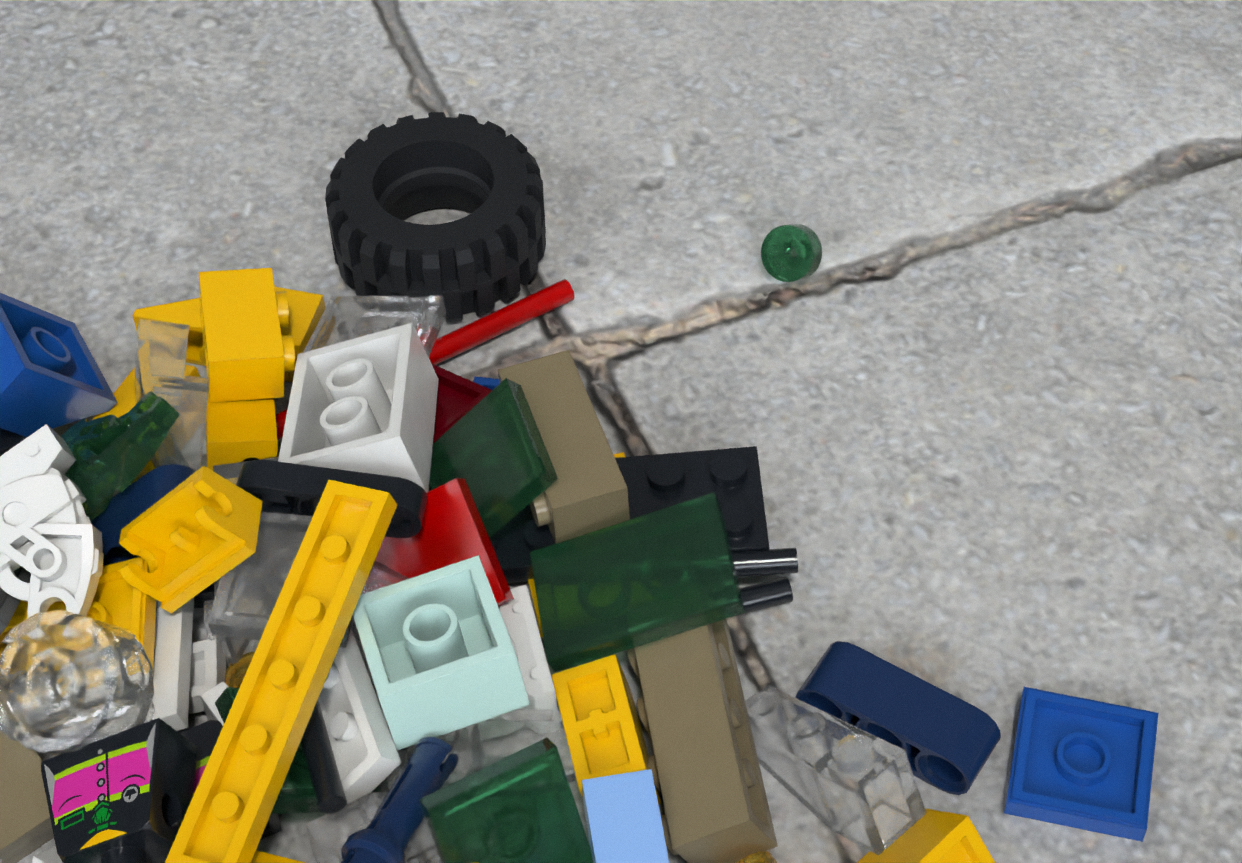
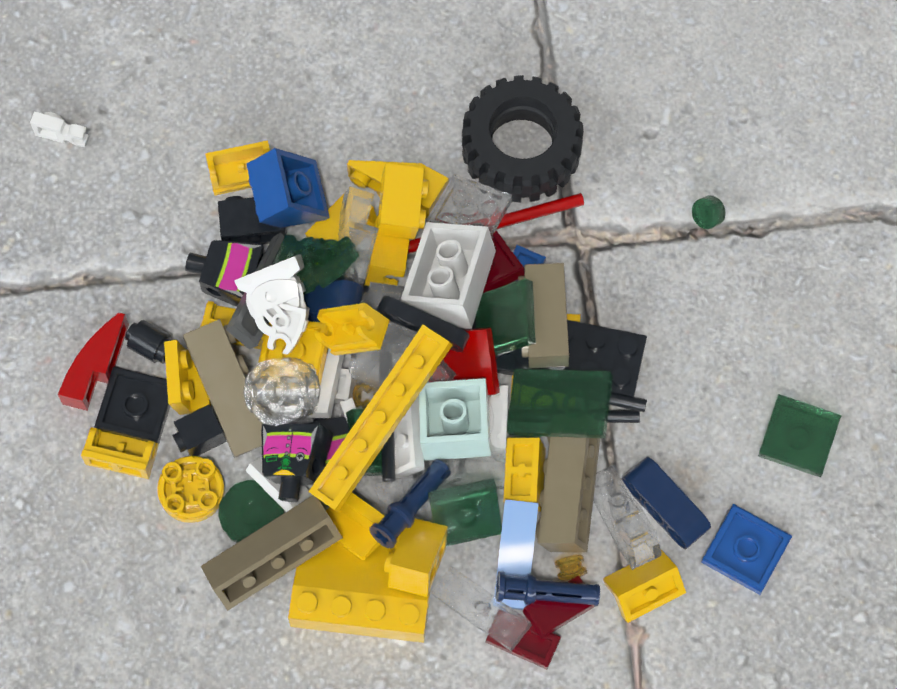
camera: 15 degrees right, 20 degrees up
(1092, 547) = (799, 435): none -> clear green tile

